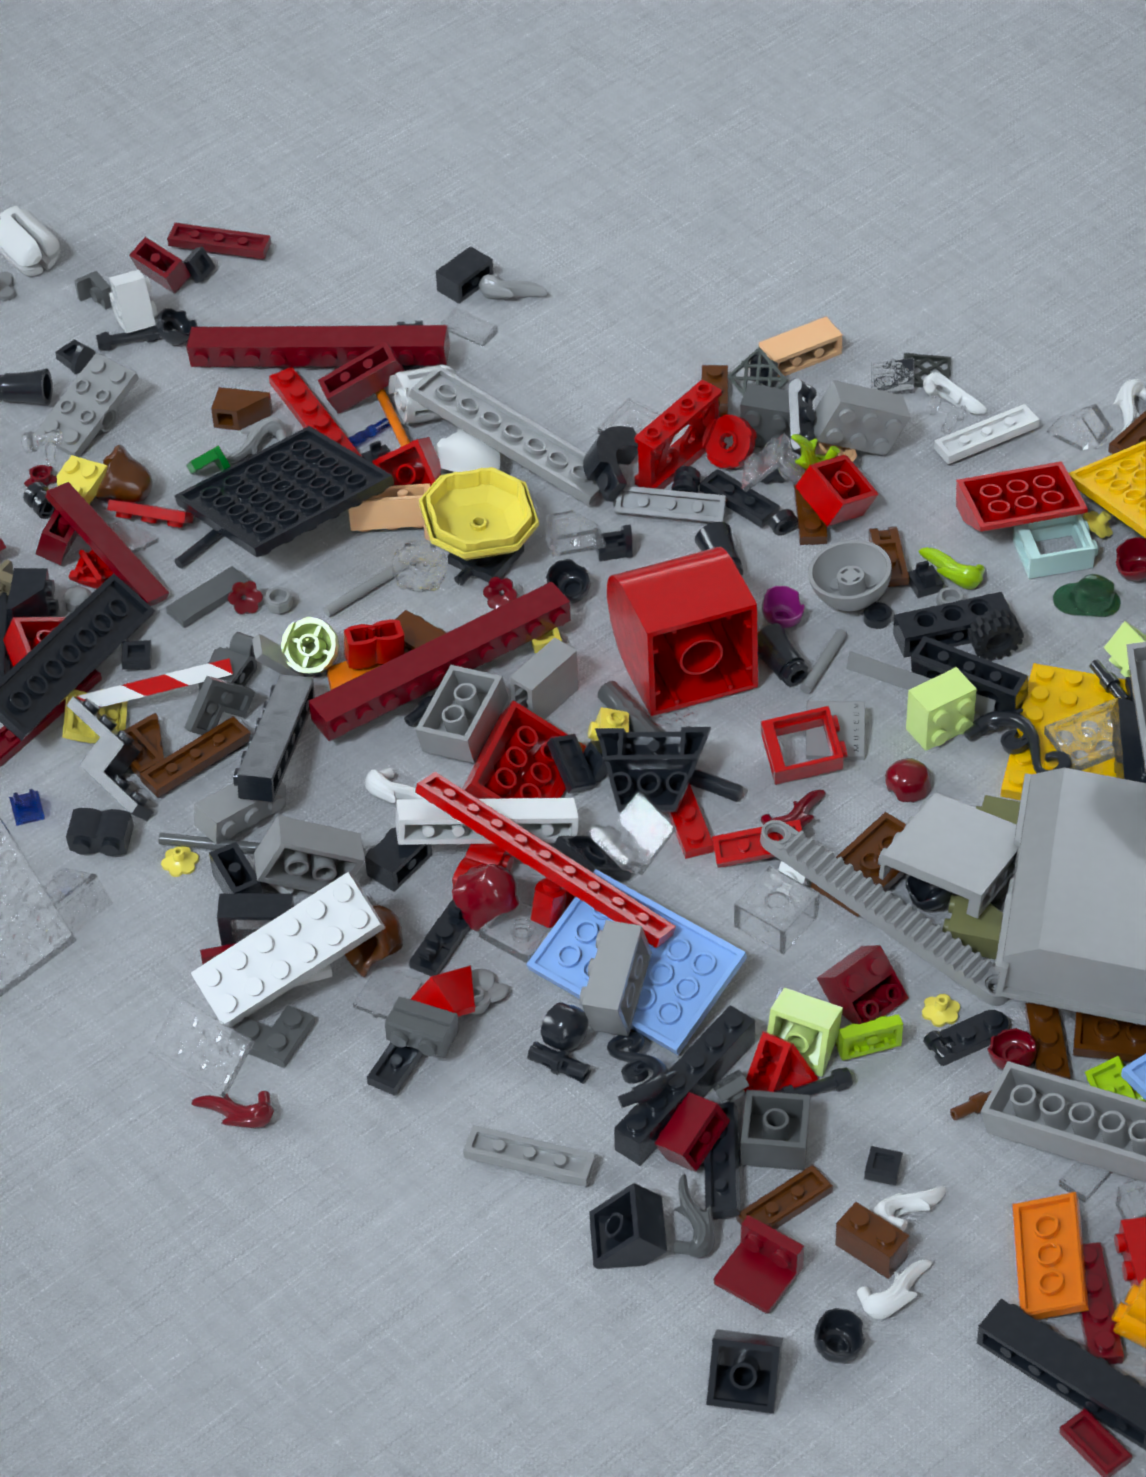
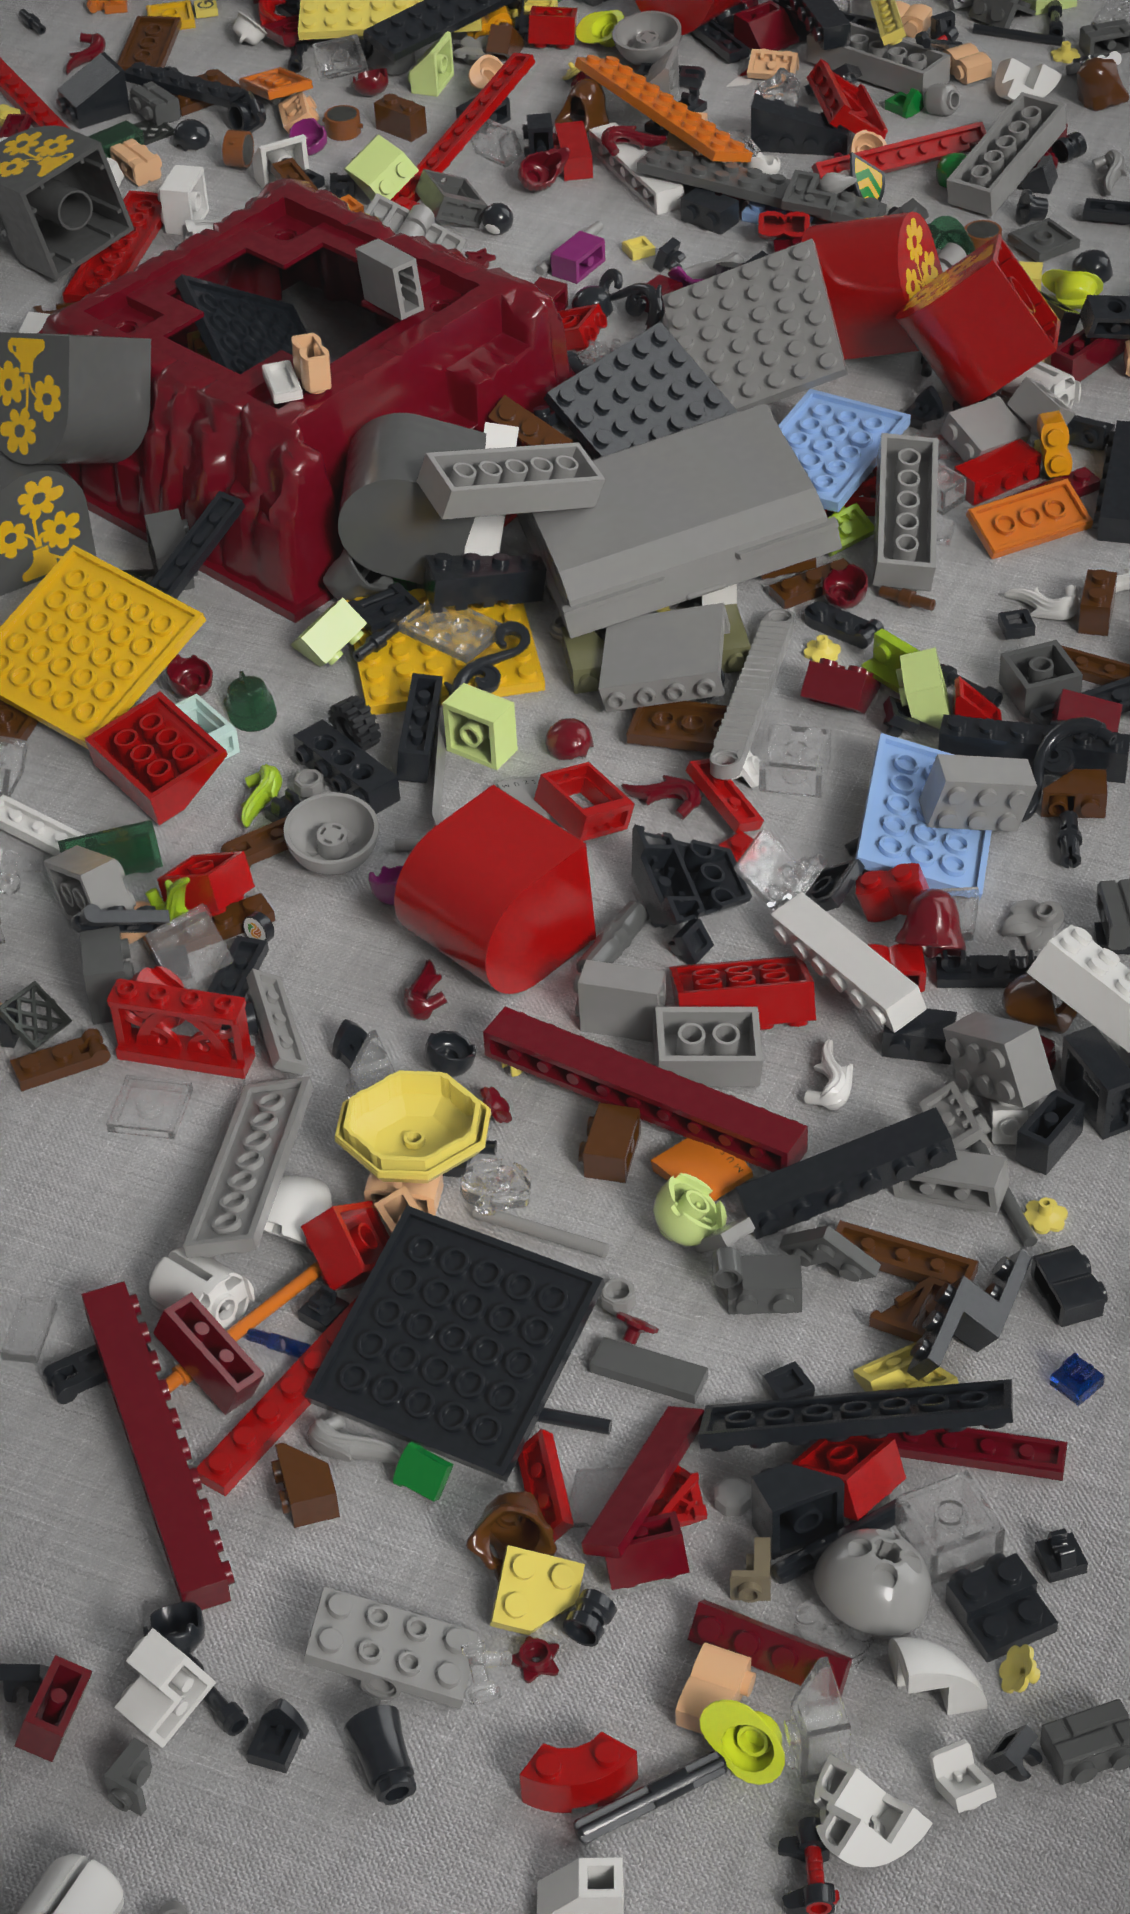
camera: 115 degrees left, 5 degrees down
(159, 683) = (837, 1323): sticker -> none
(373, 643) = (663, 1141): red brick -> none
(449, 991) = (1076, 910): red slope -> none
(543, 858) = (884, 878): red plate -> none
(564, 1027) = (1037, 833): black hair -> none
(571, 763) = (711, 952): black plate -> none
(600, 1092) = (1077, 791): none -> reddish brown slope
(608, 719) = (648, 943): light yellow bracket -> none
(612, 447) = (241, 1080): black arch -> none
(718, 535) = (335, 954): black plant -> none
(731, 1086) = (1025, 703): dark grey plate -> none
(918, 456) = (131, 845): none -> clear green brick

